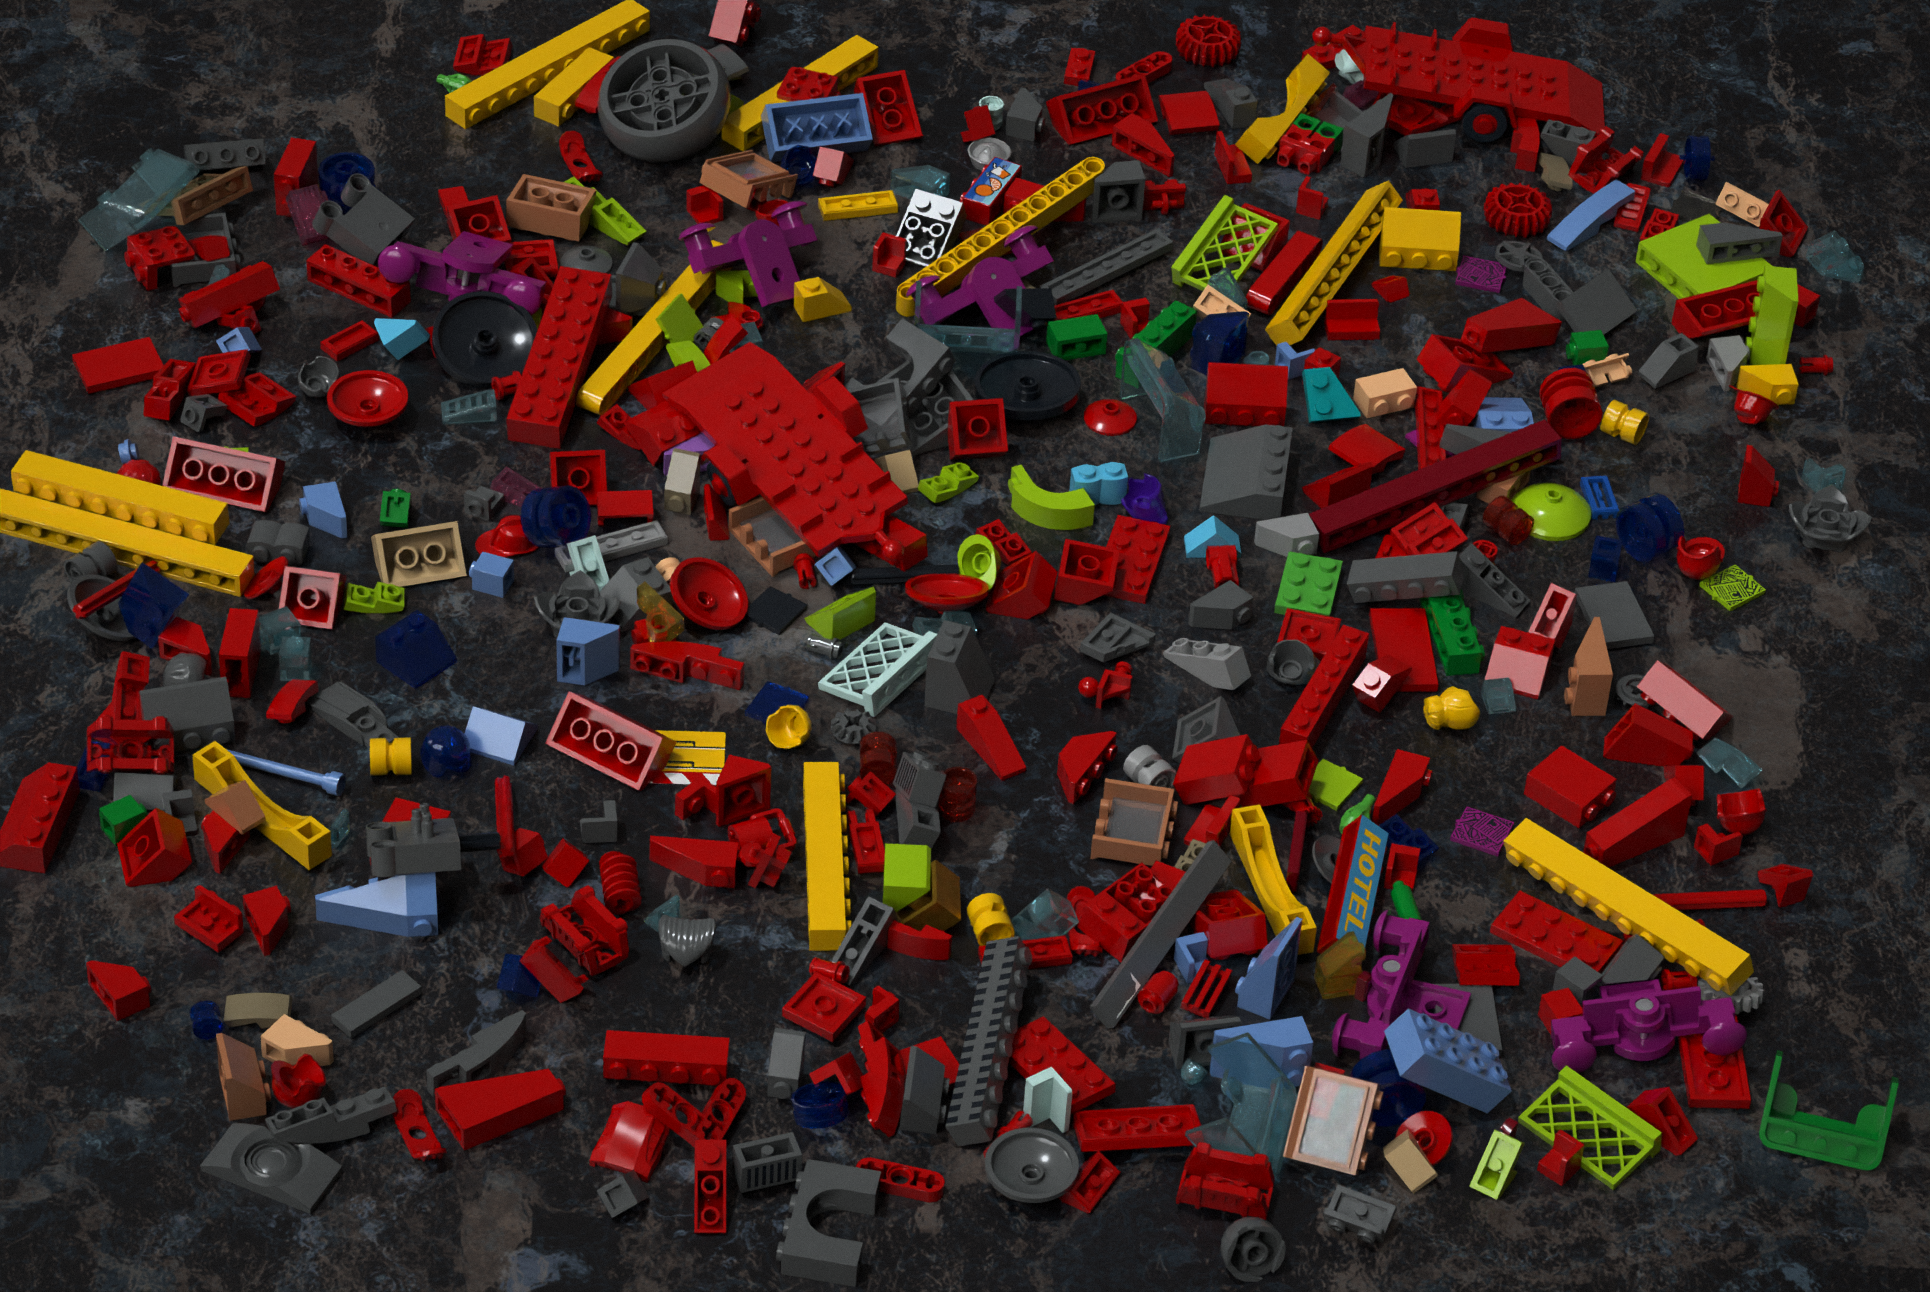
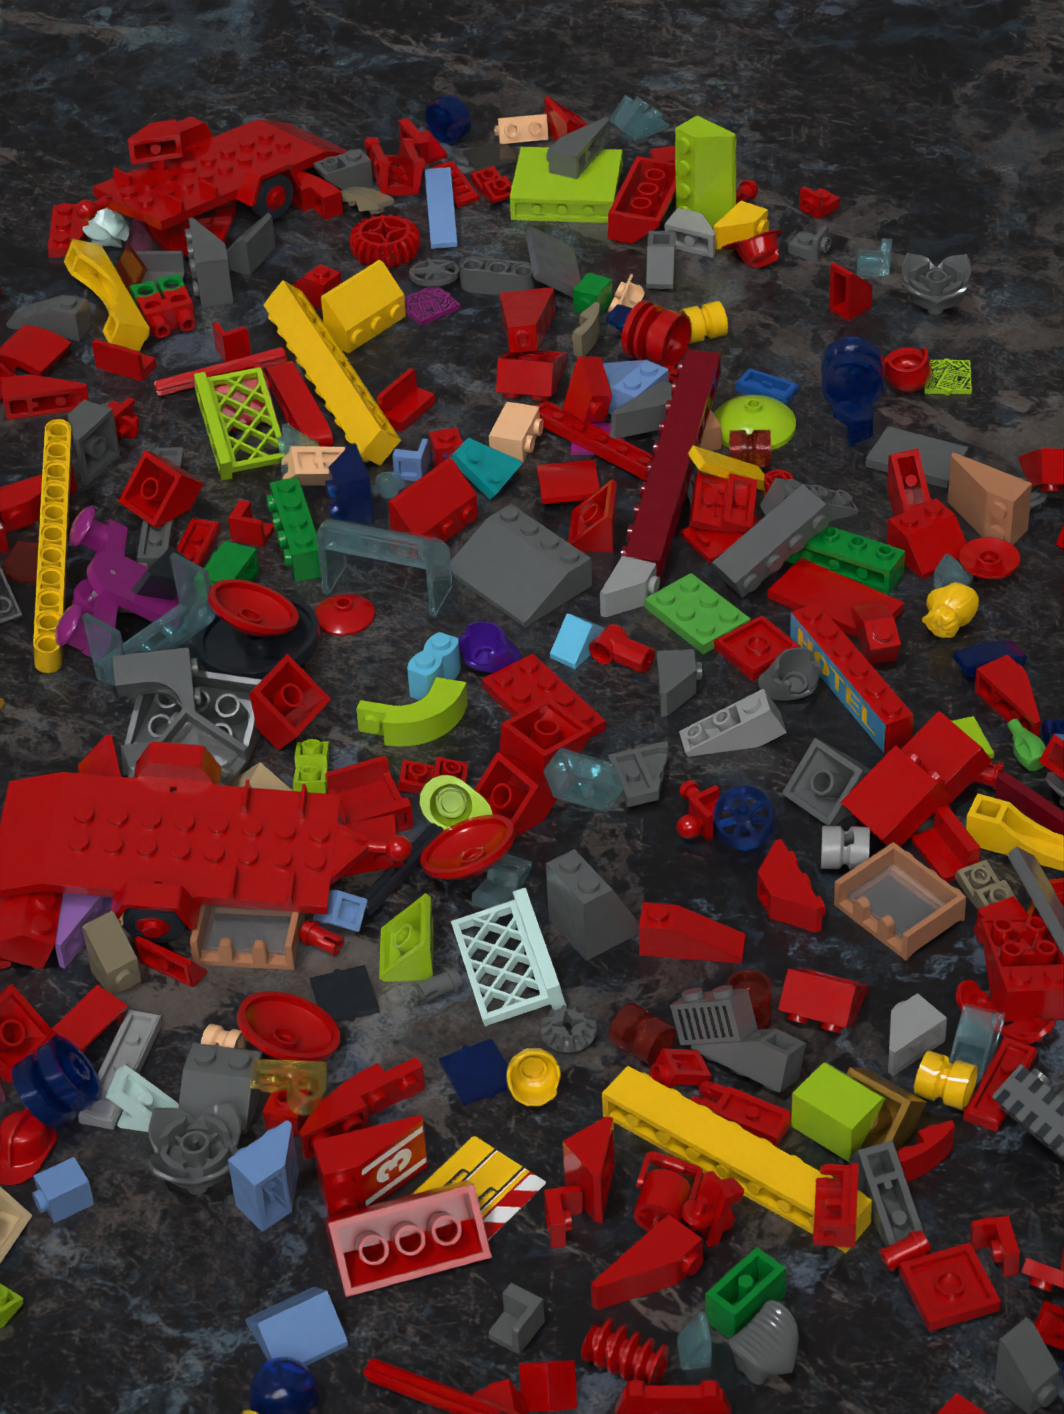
camera: 45 degrees left, 0 degrees up
(414, 649) = (103, 1327): clear blue slope -> none
(638, 688) = (369, 1163): none -> red slope
(722, 904) = (744, 1292): none -> green brick
(818, 914) = (836, 1206): none -> red hinge
(948, 522) = (369, 793): none -> red panel
(1004, 828) = (821, 998): none -> red slope
(1016, 884) = (913, 1031): none -> light grey slope
(1033, 359) = (252, 608): none -> red dish
(1066, 610) = (583, 780): none -> clear light blue brick
(1109, 253) = (159, 490): none -> red slope
(1125, 720) = (744, 817): none -> clear blue wheel
(1297, 220) = (186, 380): none -> red axle
(1392, 288) = (385, 359): red slope -> none
(1441, 760) = (983, 653): none -> clear blue slope
(1442, 23) = (155, 142): none -> red slope
(1454, 506) = (722, 465): none -> yellow tile
(1536, 370) = (588, 332): none -> dark tan slope
(1536, 704) = (989, 558): none -> red dish
(1800, 433) = (809, 245): none -> dark grey bracket
(1859, 412) = (817, 202): none -> red bracket

